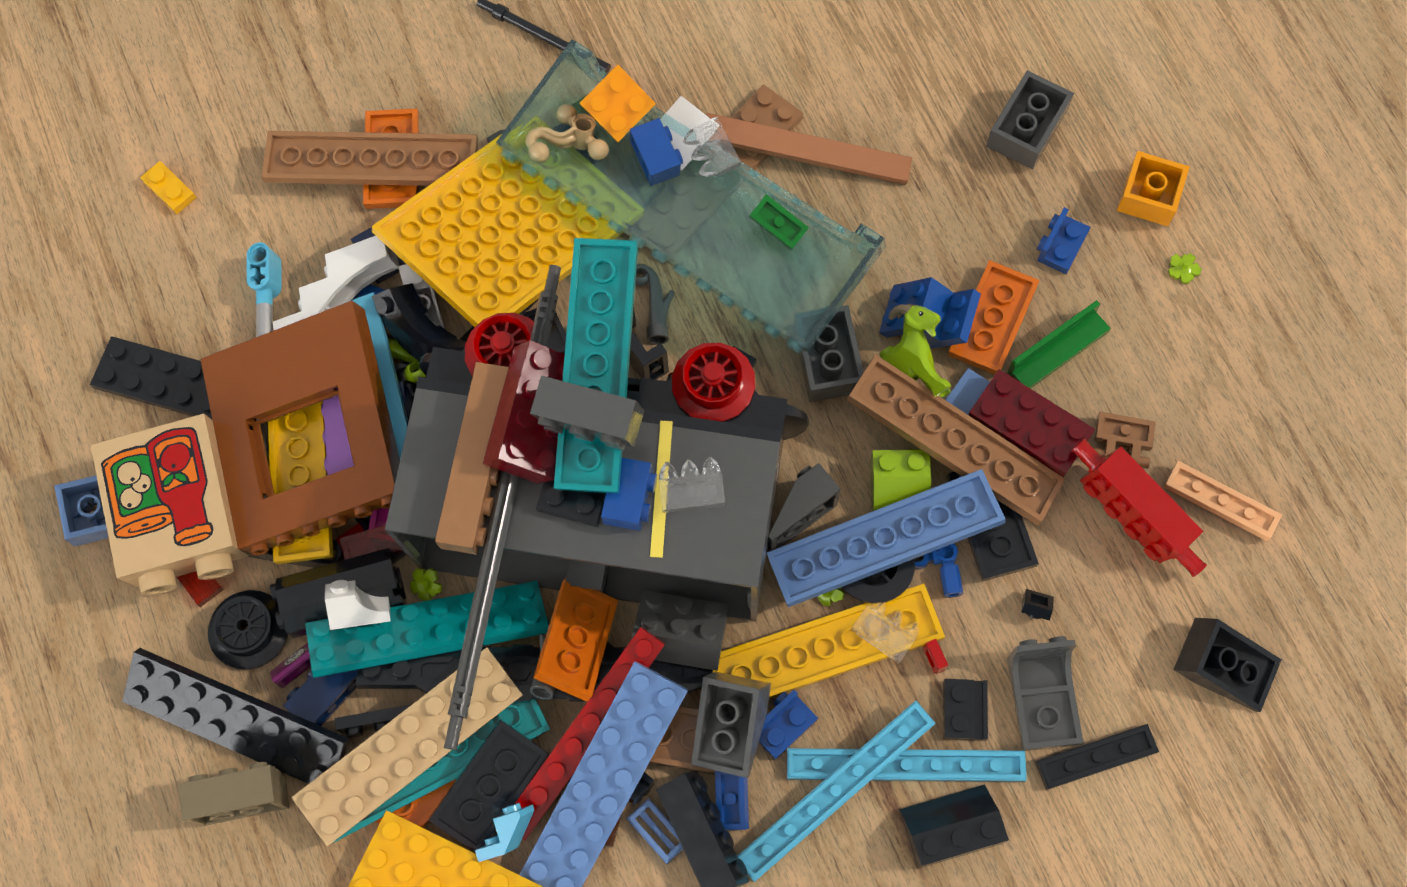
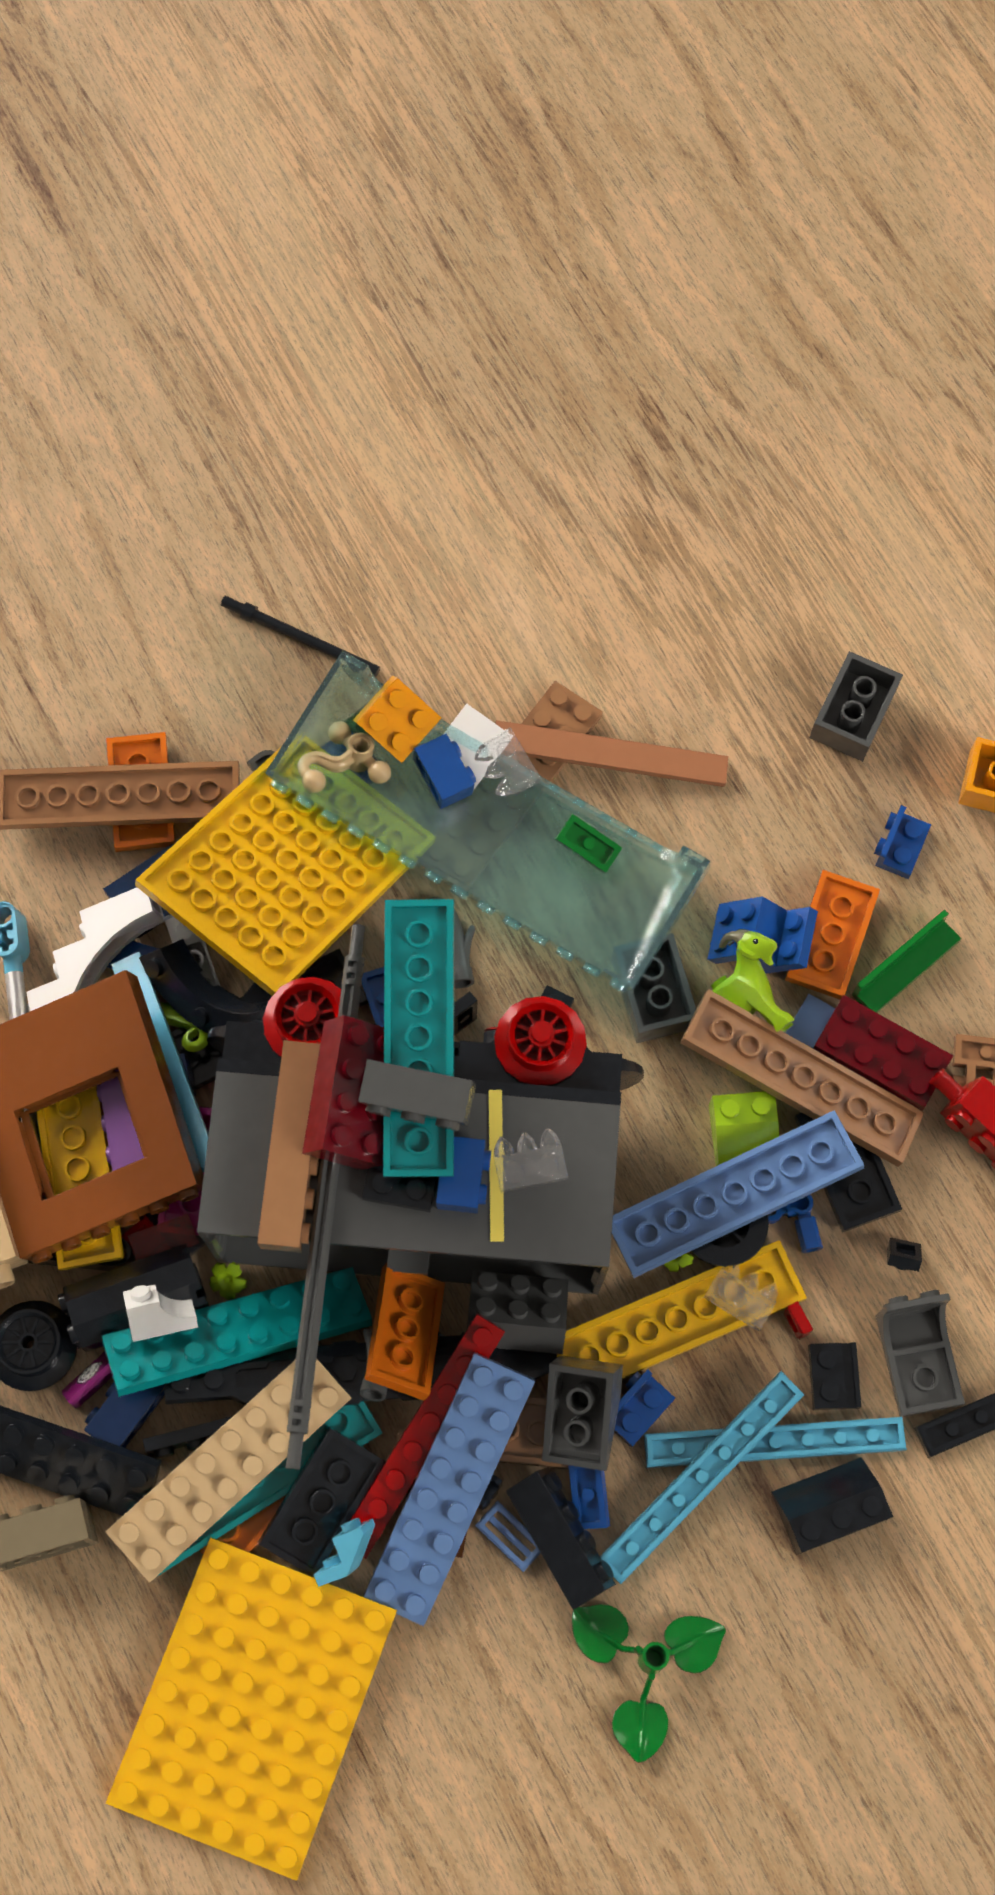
camera: 10 degrees left, 0 degrees up
(808, 501) = (648, 1154): dark grey slope -> none

